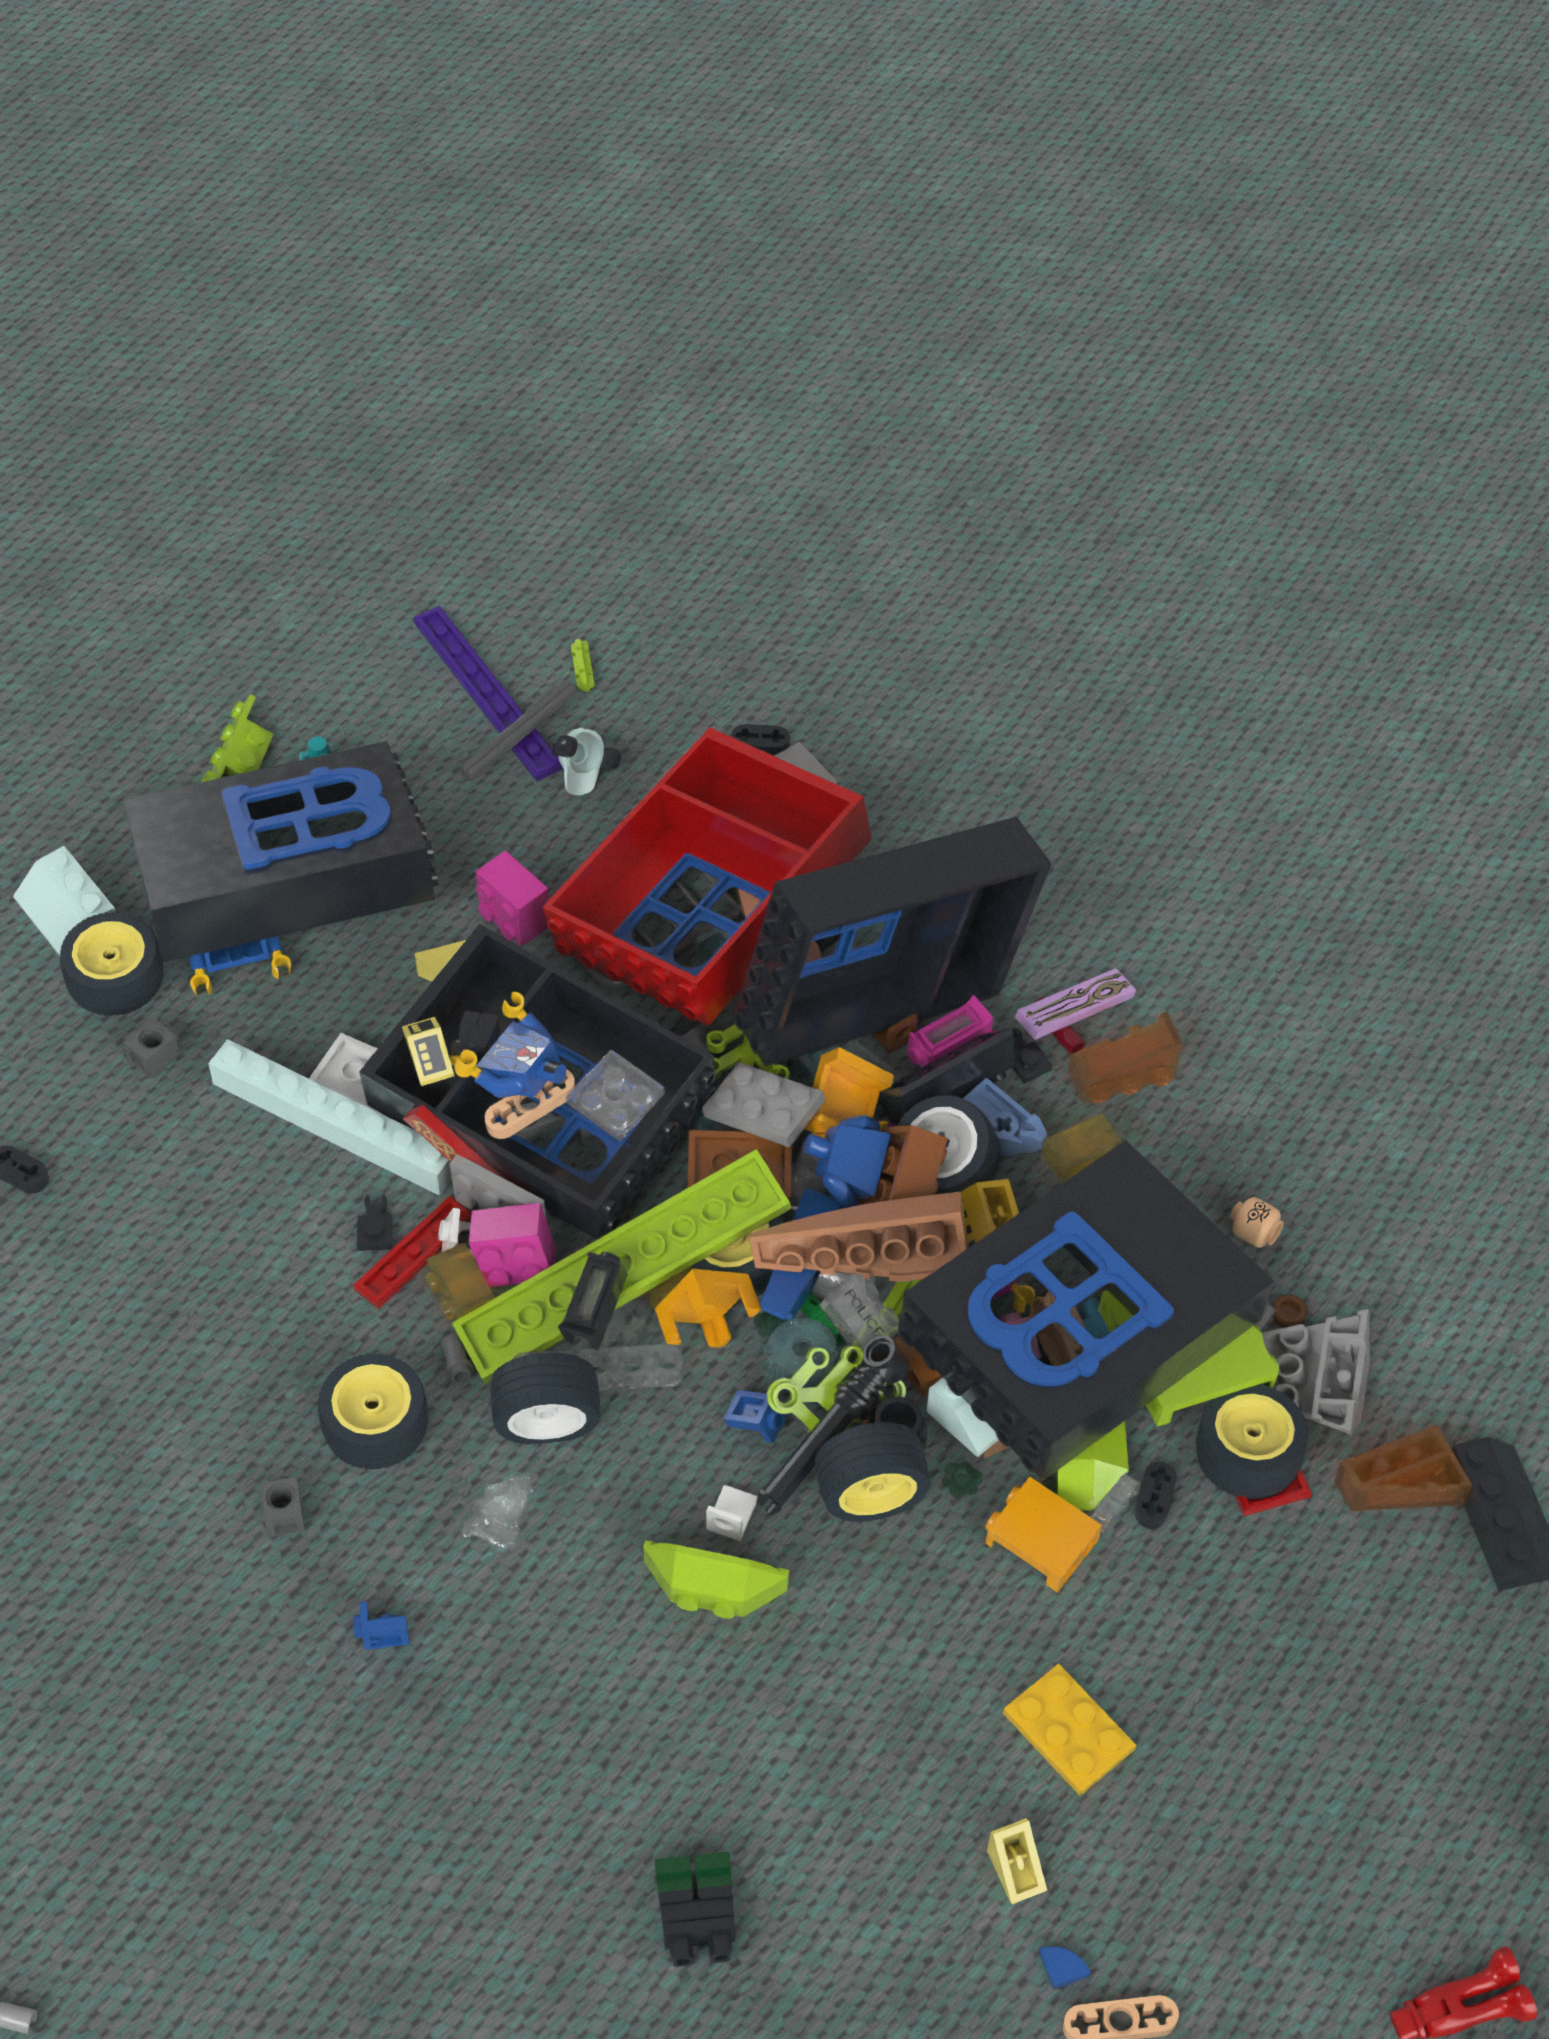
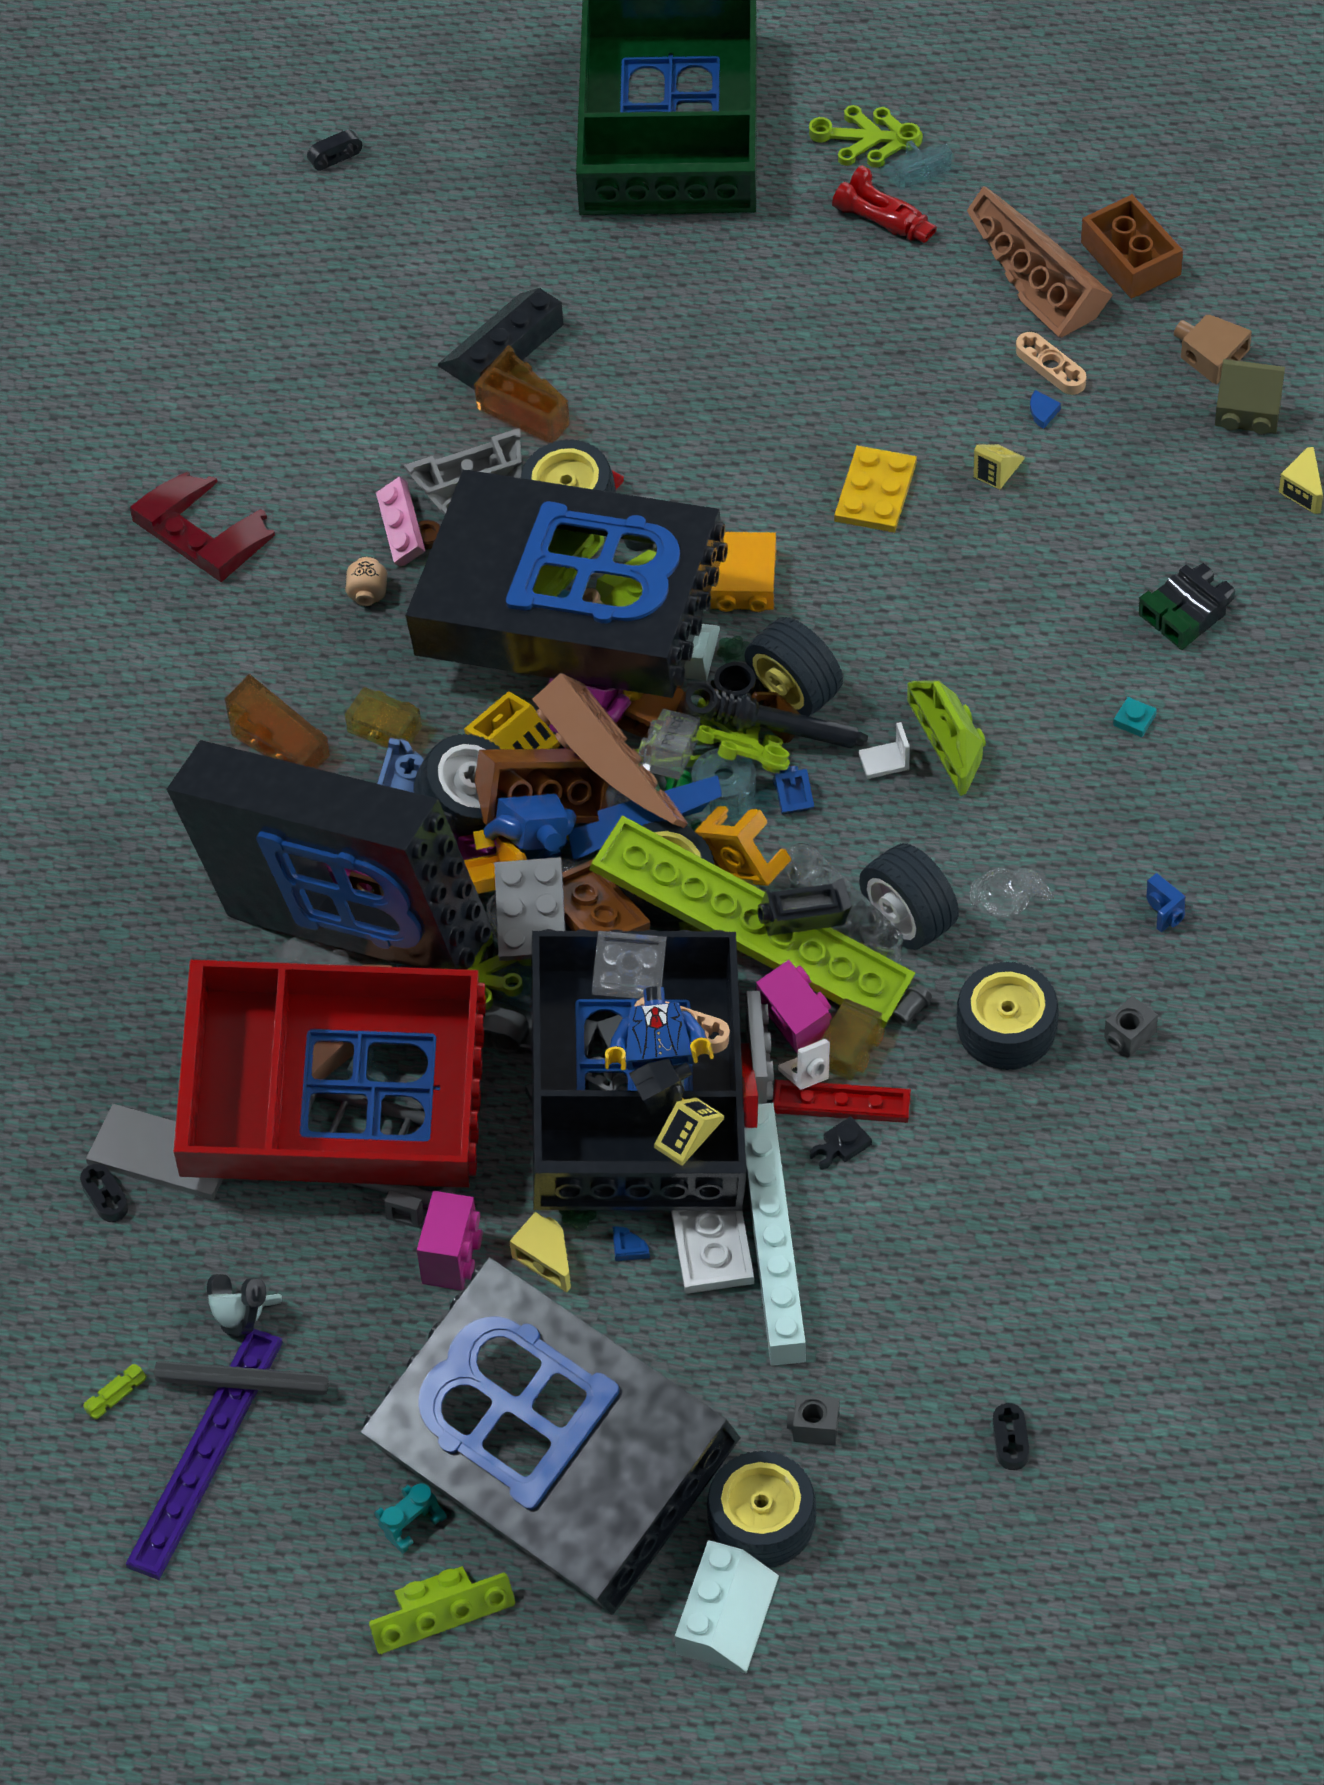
camera: 120 degrees left, 0 degrees up
(607, 1764) = (1134, 717): none -> teal plate
(1317, 1292) = (400, 521): none -> bright pink plate
(1461, 1116) = (218, 556): none -> dark red wedge

